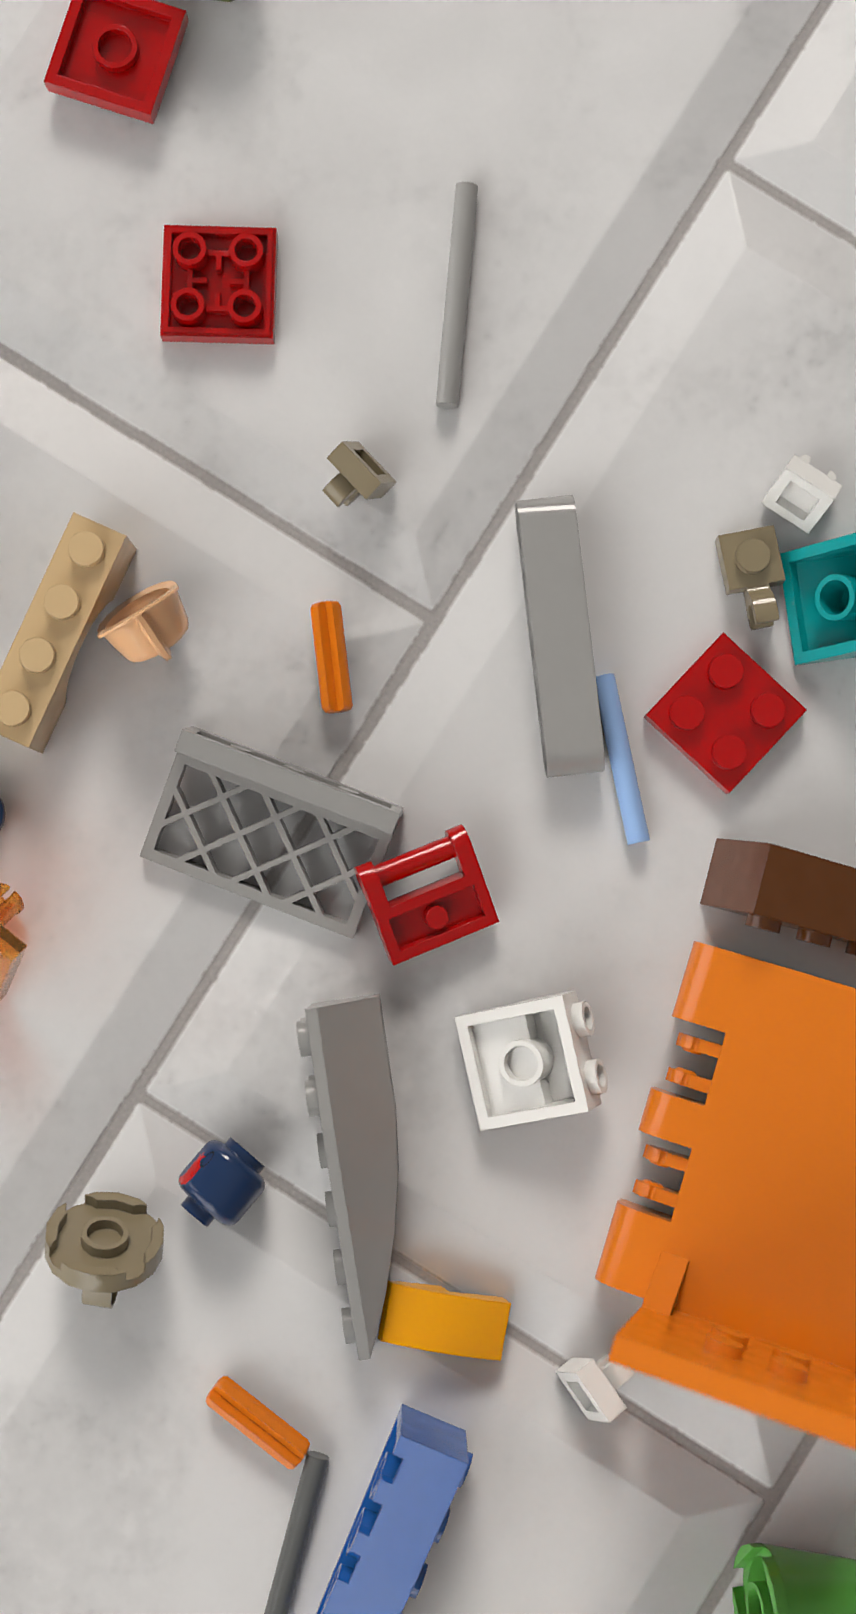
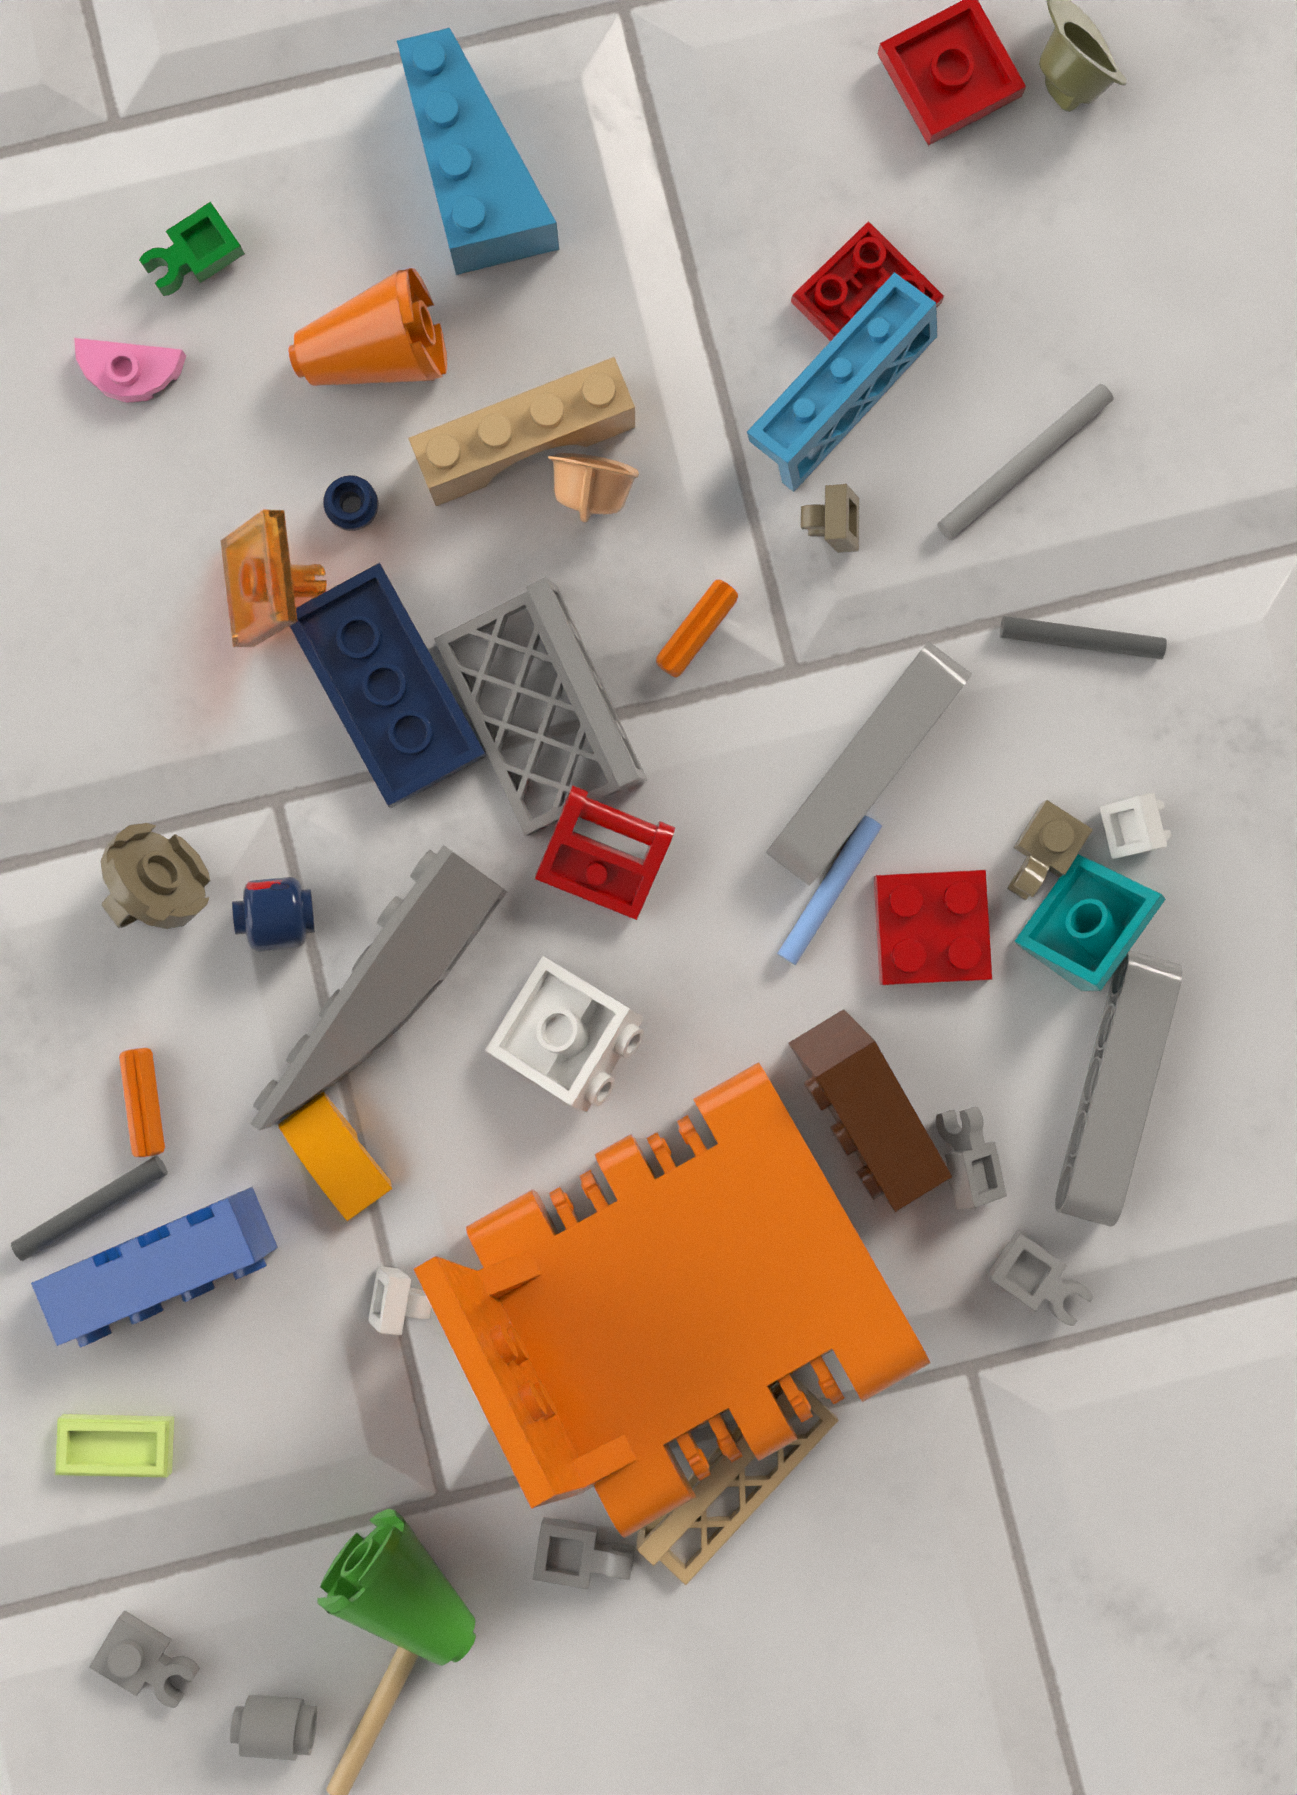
camera: 40 degrees right, 0 degrees up
(137, 927) = (385, 686): none -> dark blue plate
(263, 362) = (846, 380): none -> dark azure fence
(627, 387) = (1083, 637): none -> dark grey bar

